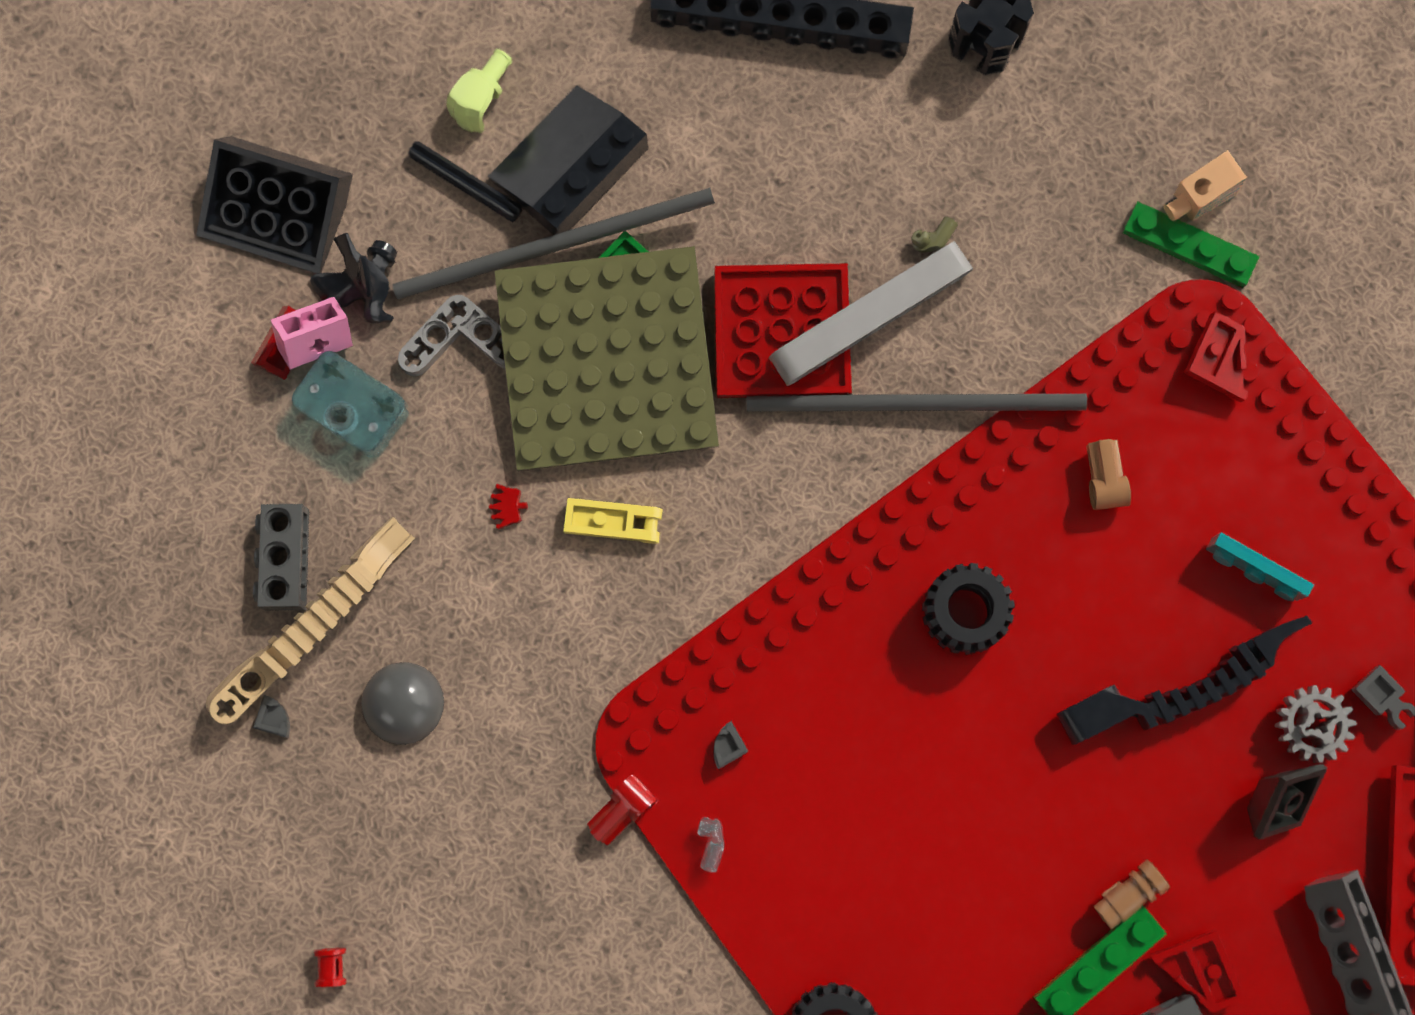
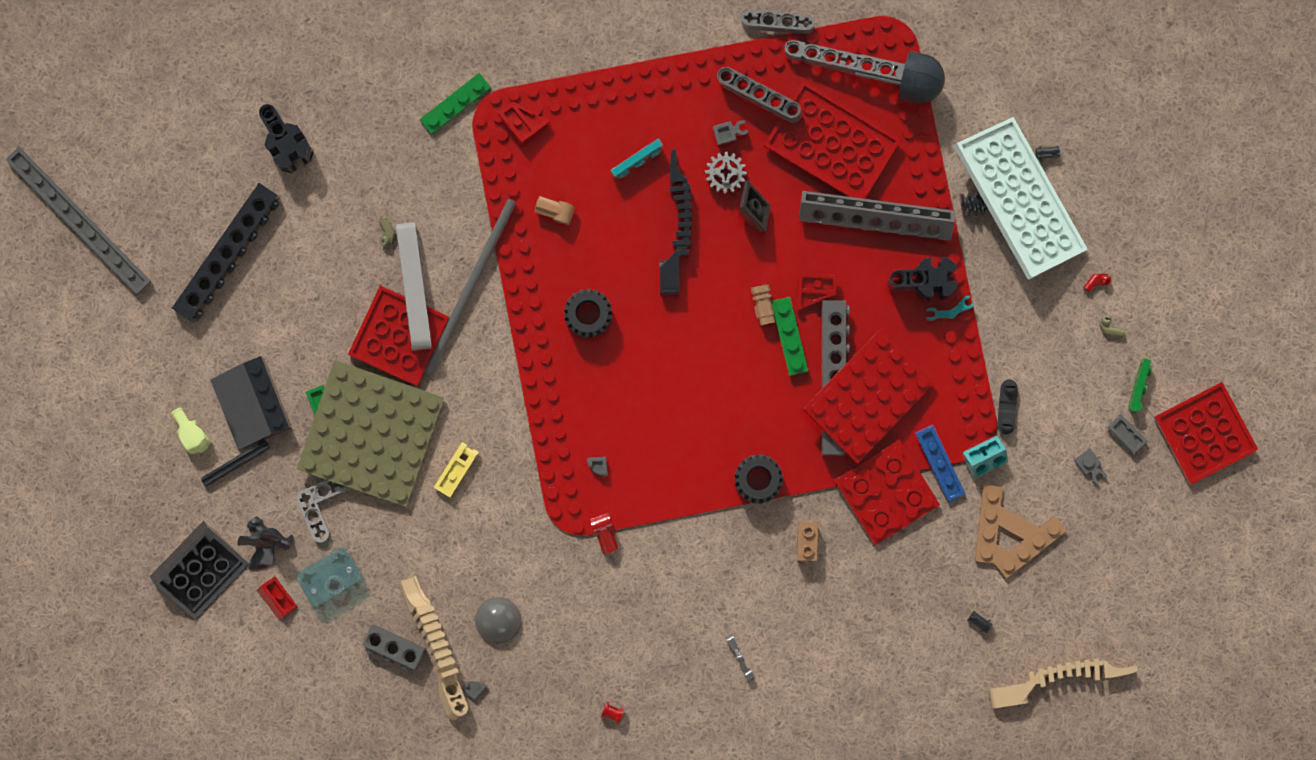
camera: 65 degrees left, 5 degrees up
(311, 331) = (282, 579): bright pink brick -> none
(508, 506) = (422, 520): red piece -> none
(553, 243) = (294, 432): dark grey piece -> none
(715, 843) = (643, 494): clear light blue arm -> none
(1206, 188) = (430, 75): light nougat torso -> none

